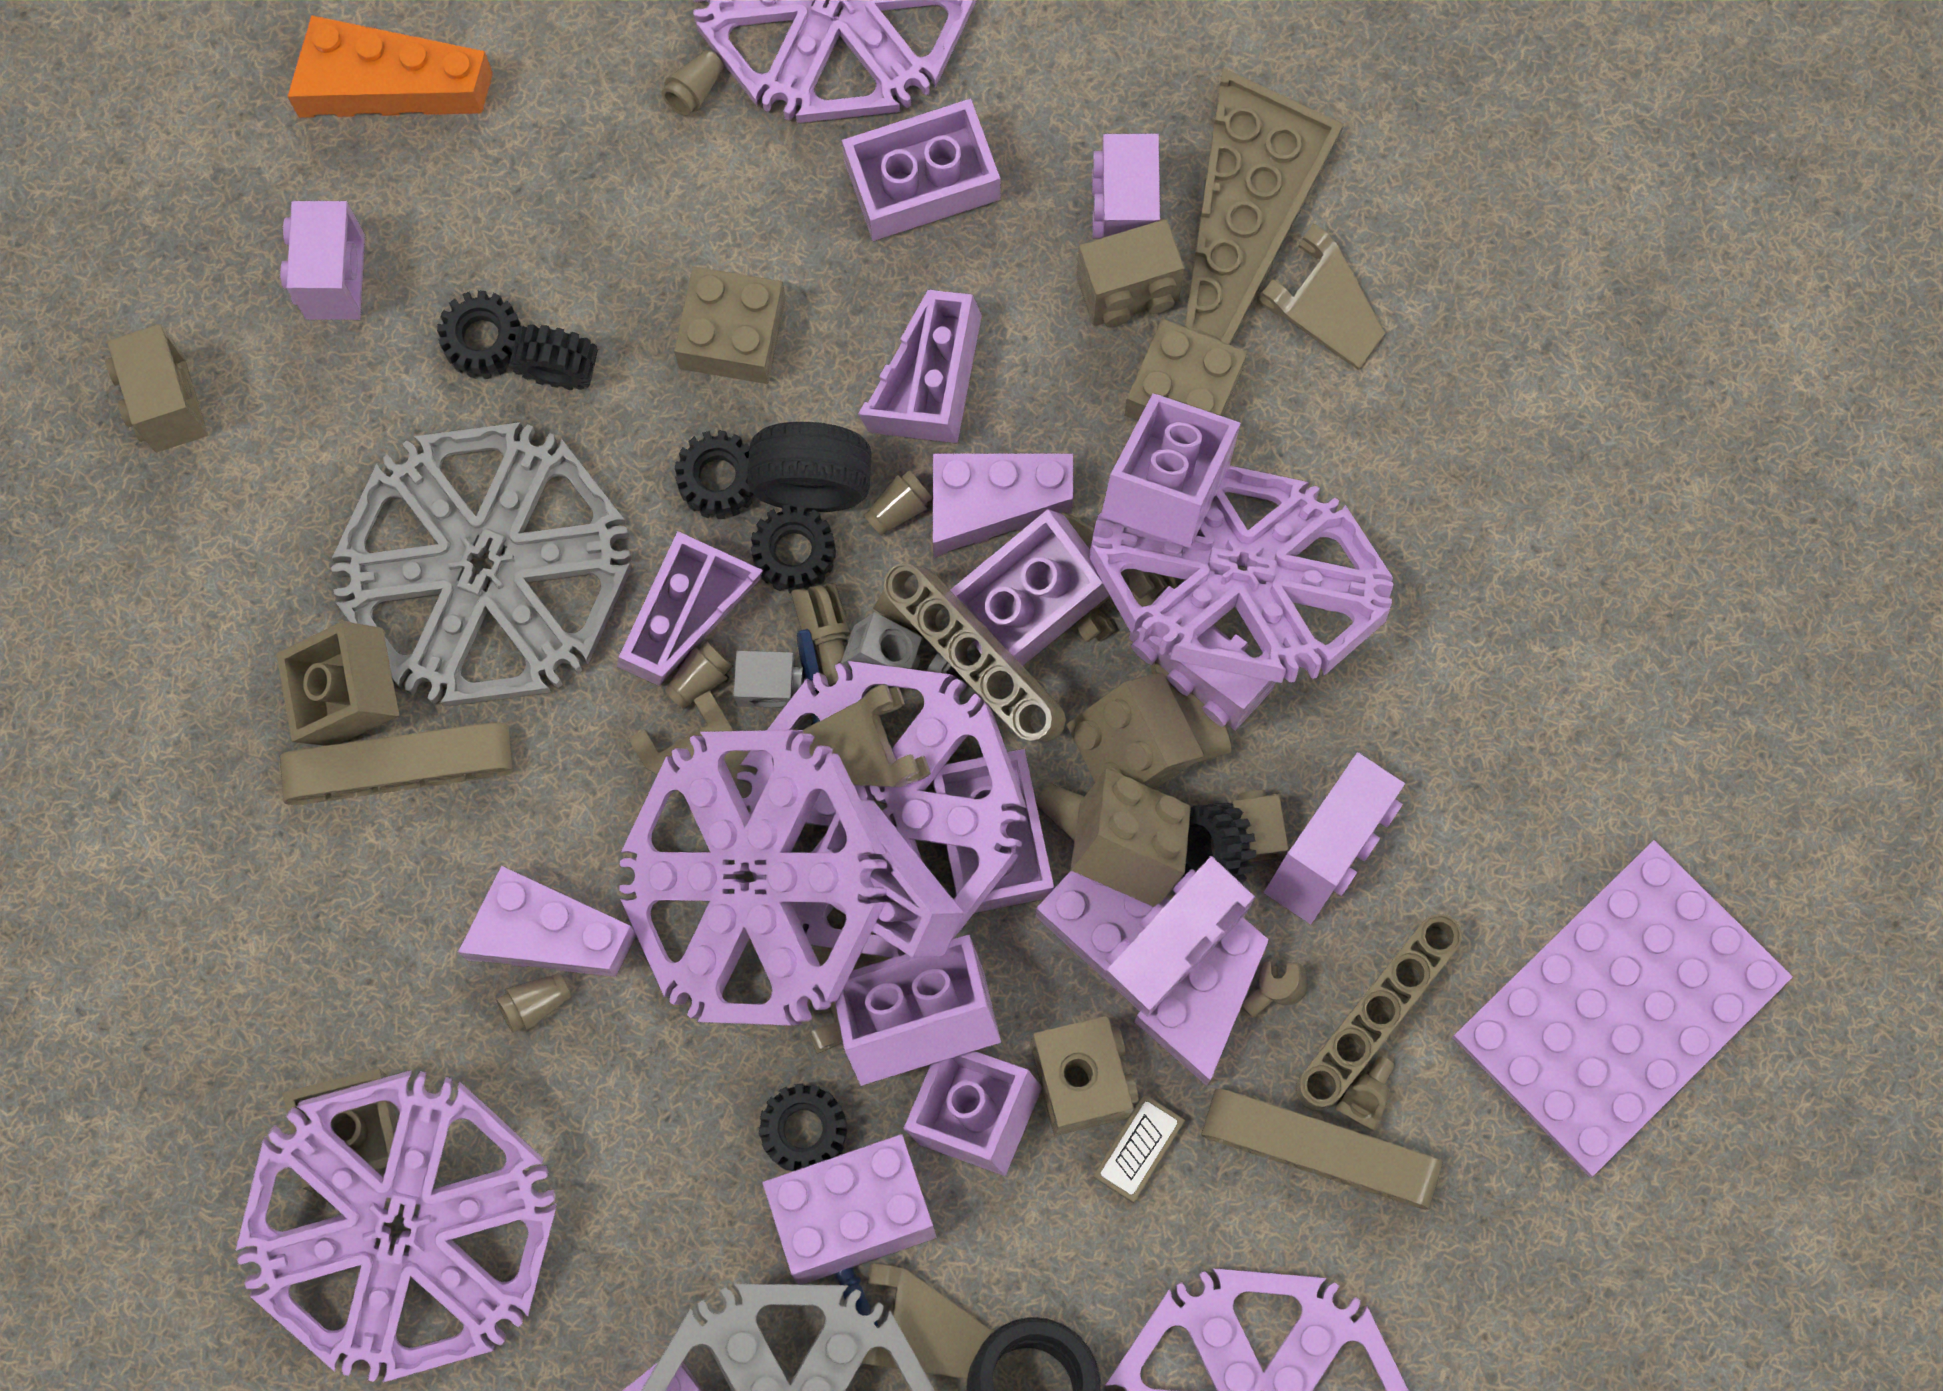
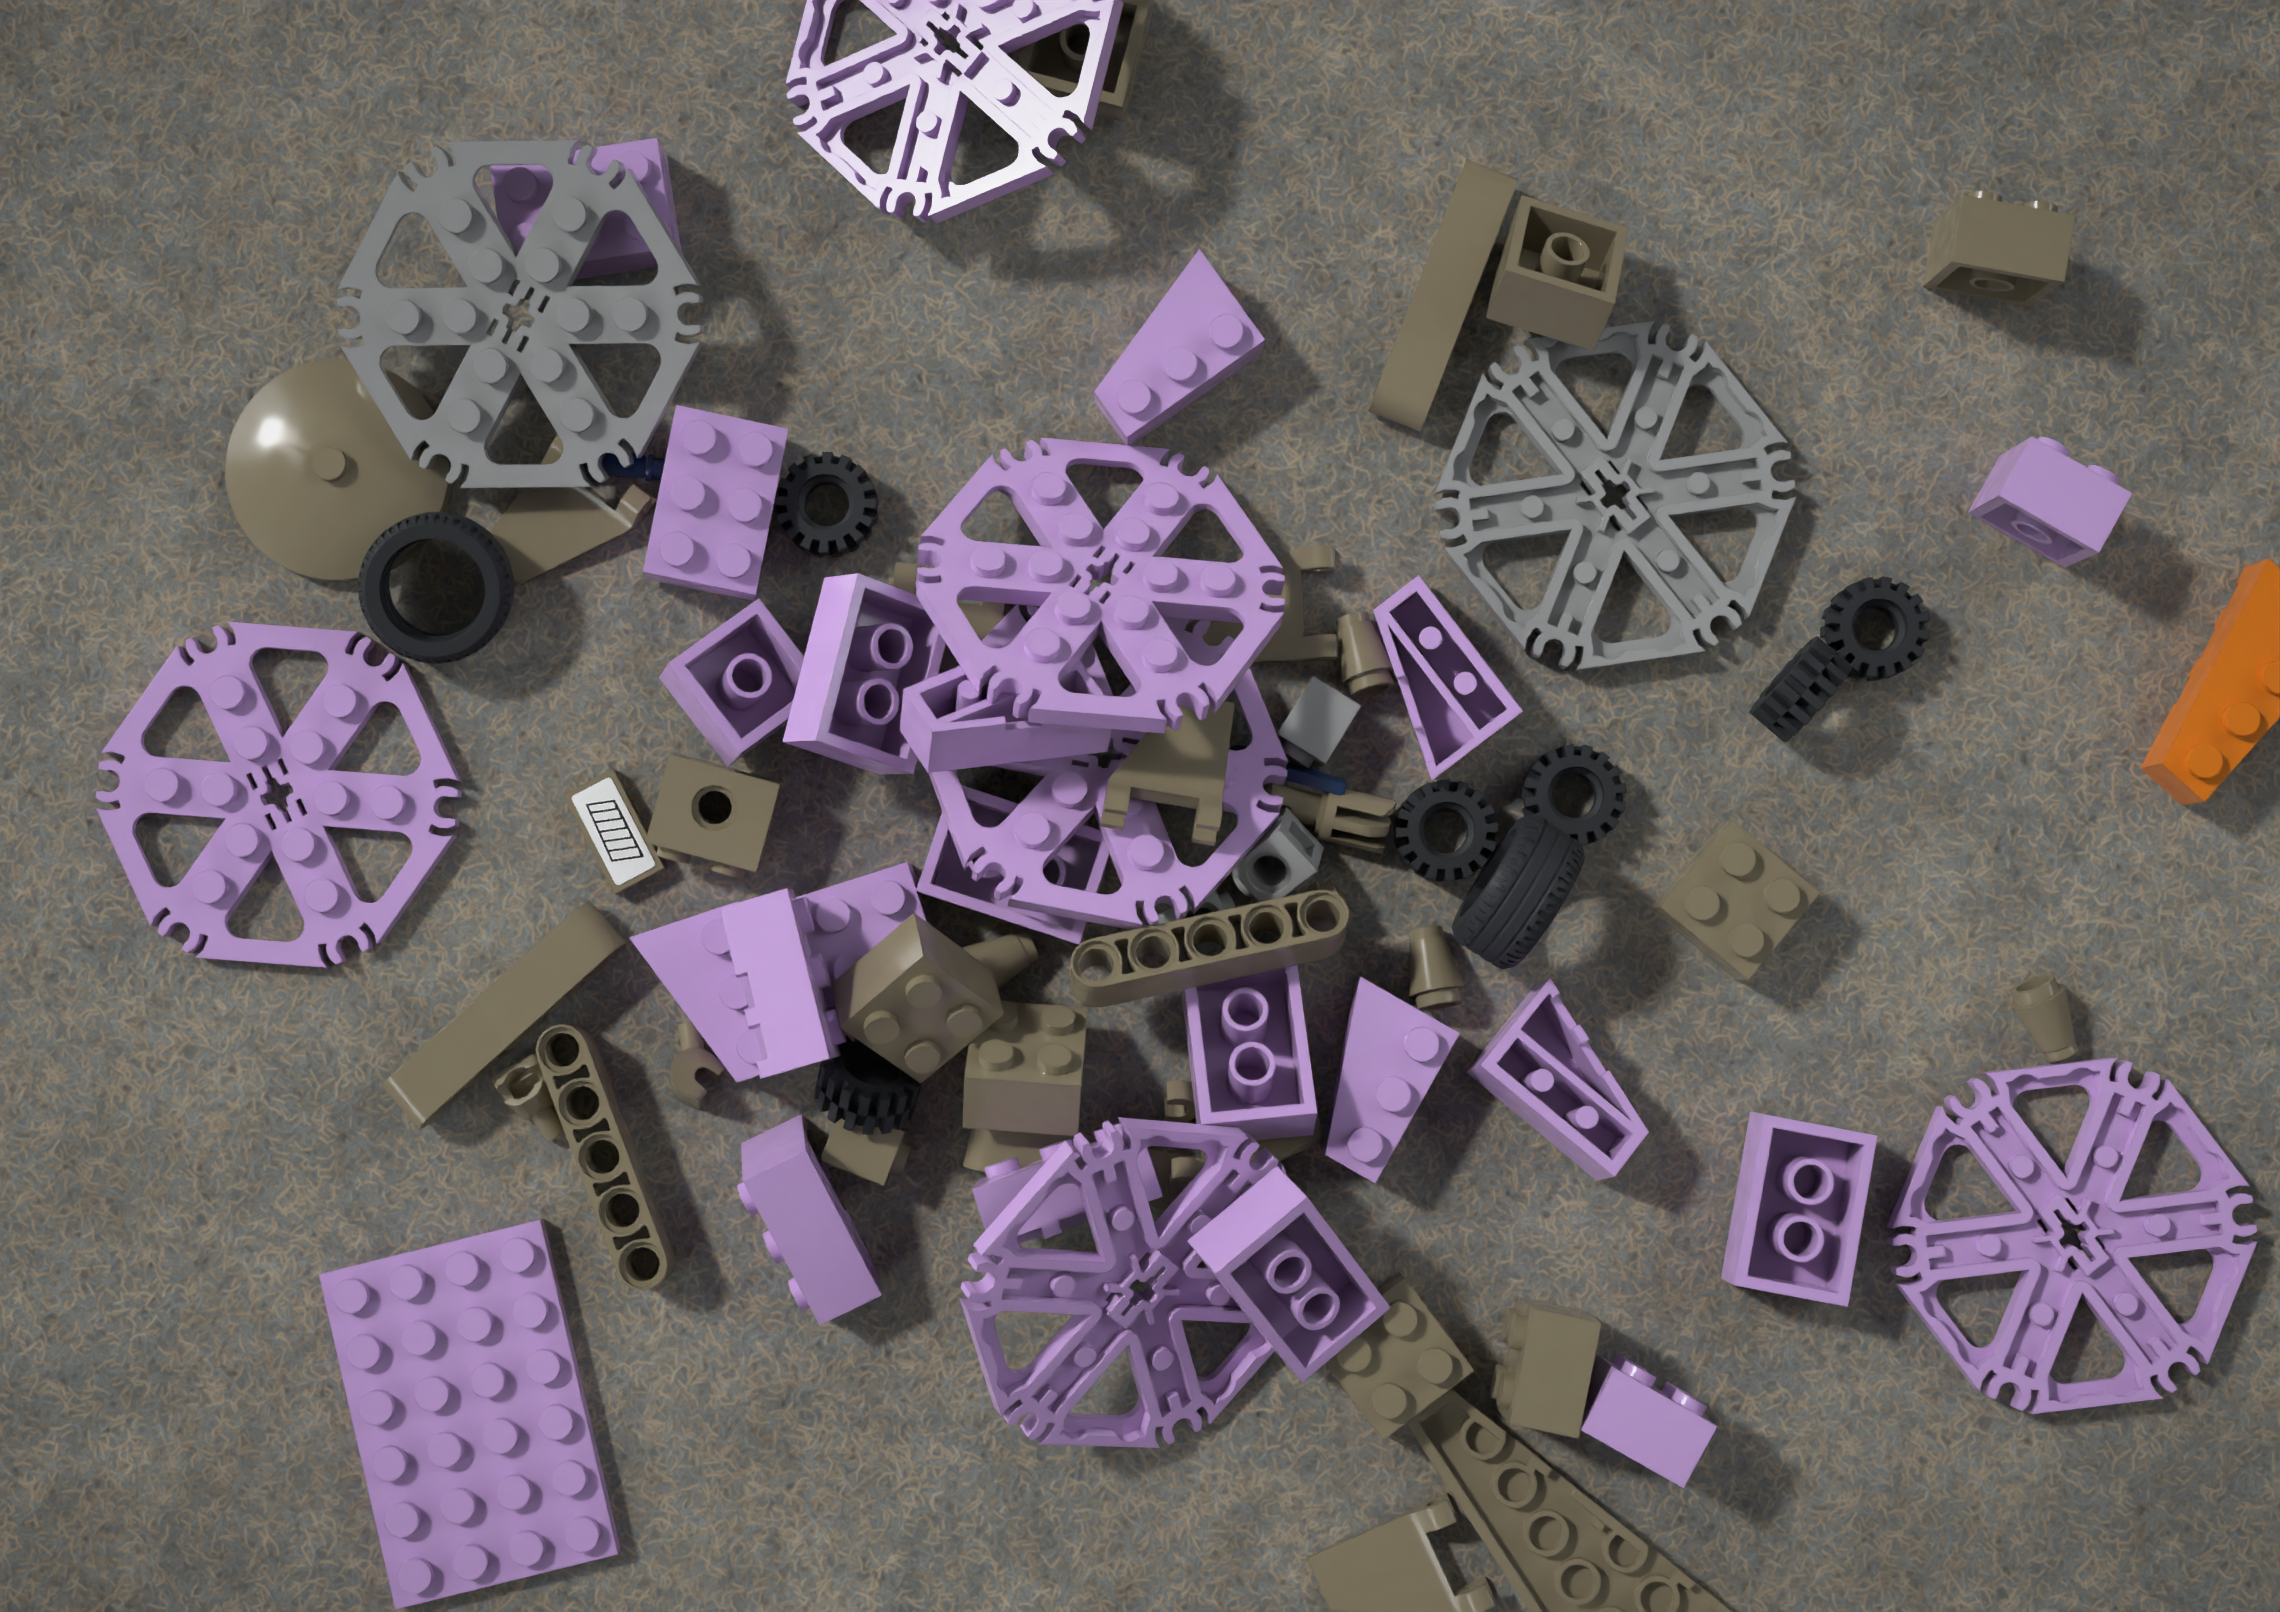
camera: 115 degrees right, 10 degrees up
(532, 1001) = (1113, 303): dark tan cone -> none

